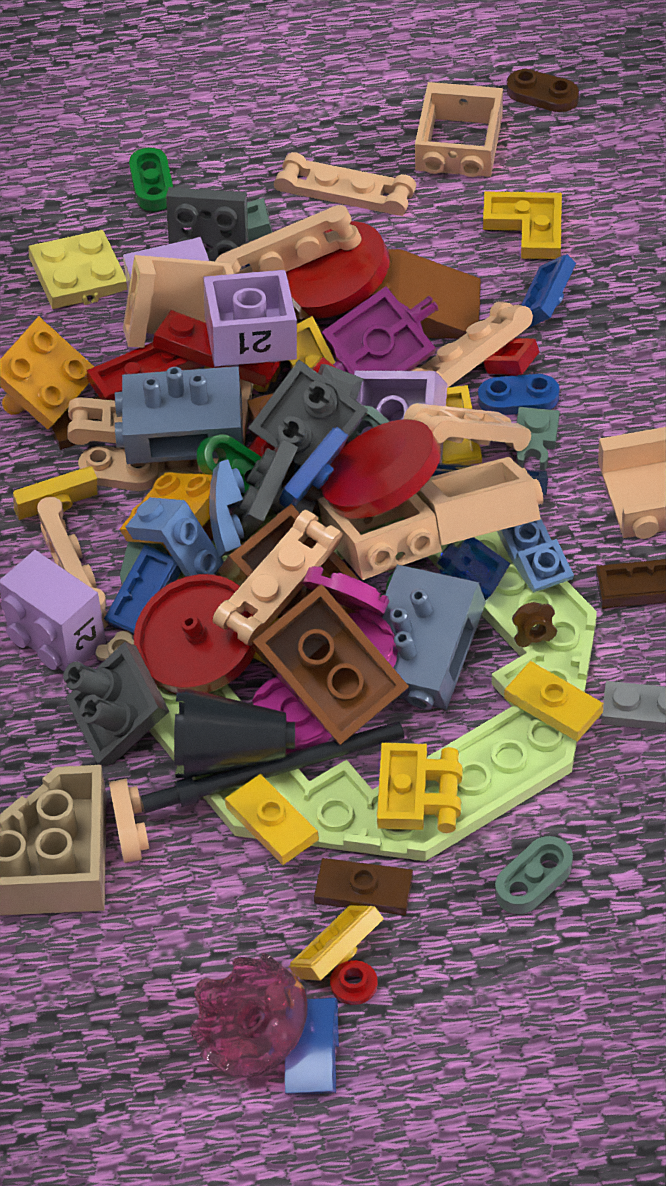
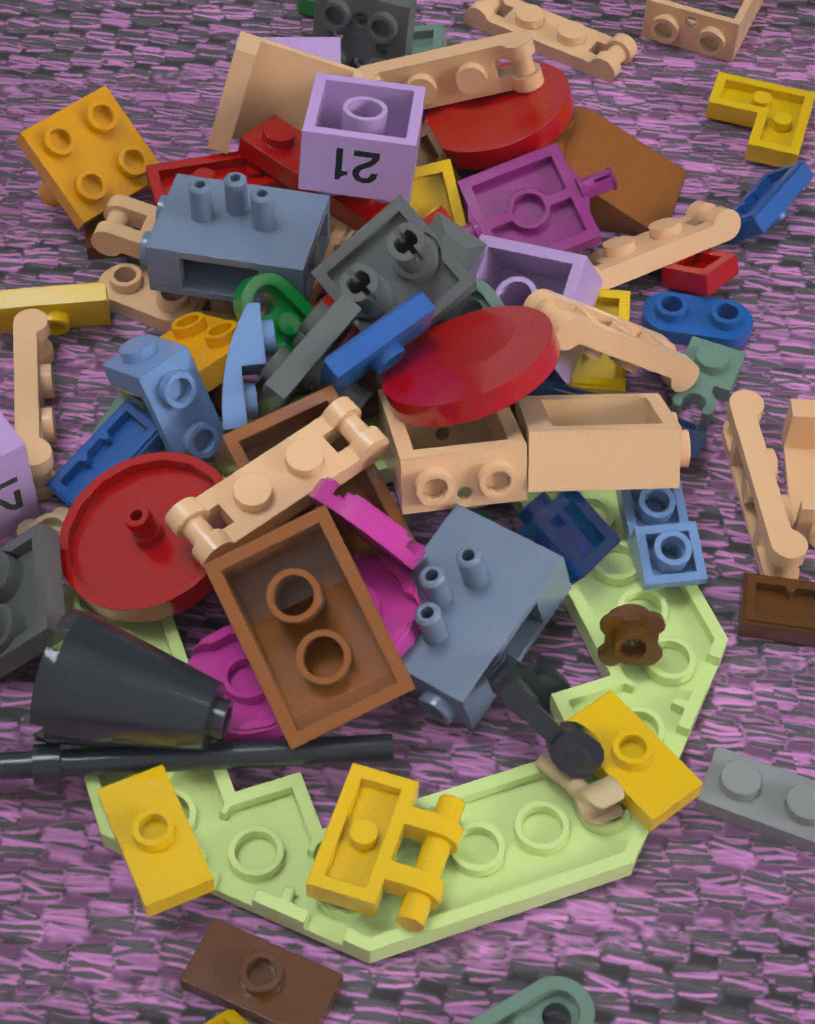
camera: 10 degrees right, 0 degrees up
(77, 268) = (189, 56): light yellow plate -> none
(513, 698) = (528, 695): none -> black piece
(537, 731) = (594, 802): none -> tan hand
(587, 497) = (755, 474): none -> light nougat plate

